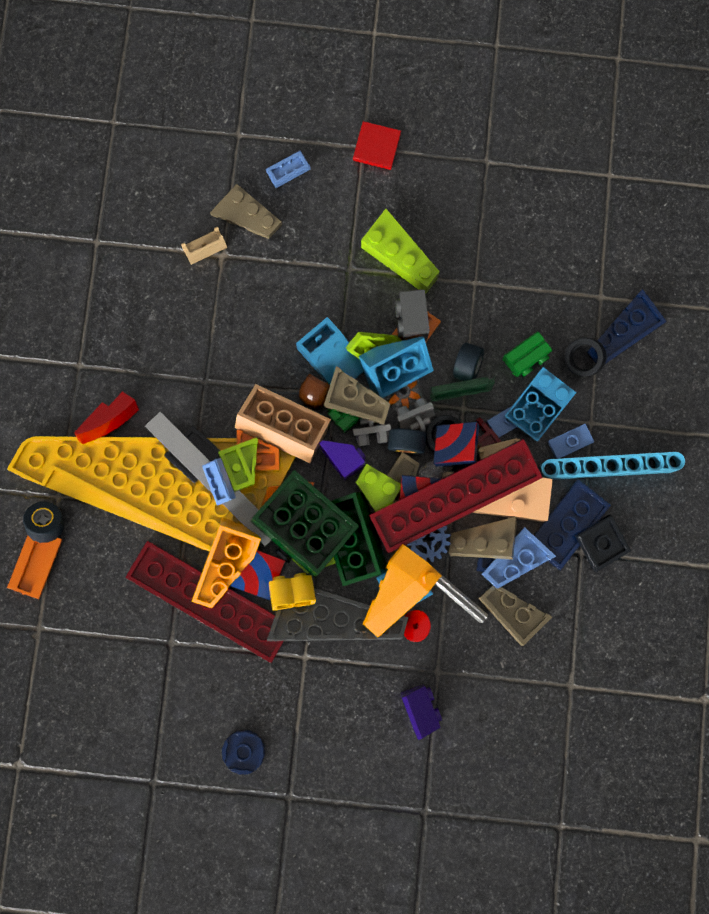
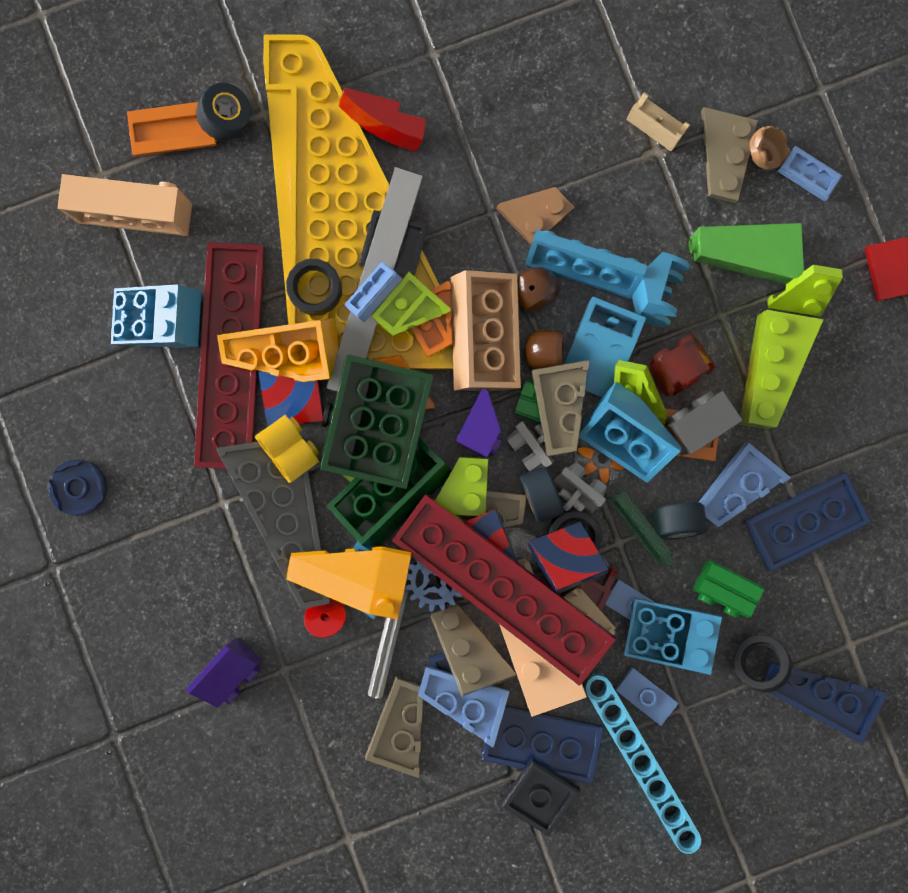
camera: 65 degrees right, 5 degrees up
(71, 619) = (125, 204): none -> light nougat brick
(156, 638) = (156, 316): none -> dark azure slope
(177, 520) = (313, 265): none -> black tyre
(221, 352) = (536, 211): none -> medium nougat wing
(258, 185) = (769, 147): none -> medium nougat hair
(276, 372) = (545, 291): none -> reddish brown helmet
(286, 324) = (612, 273): none -> dark azure hinge
(319, 227) = (754, 250): none -> bright green slope
(363, 208) = (809, 292): none -> lime wing
(369, 310) = (682, 366): none -> clear red brick
(463, 311) = (741, 483): none -> medium blue wing
(509, 284) = (807, 521): none -> dark blue tile

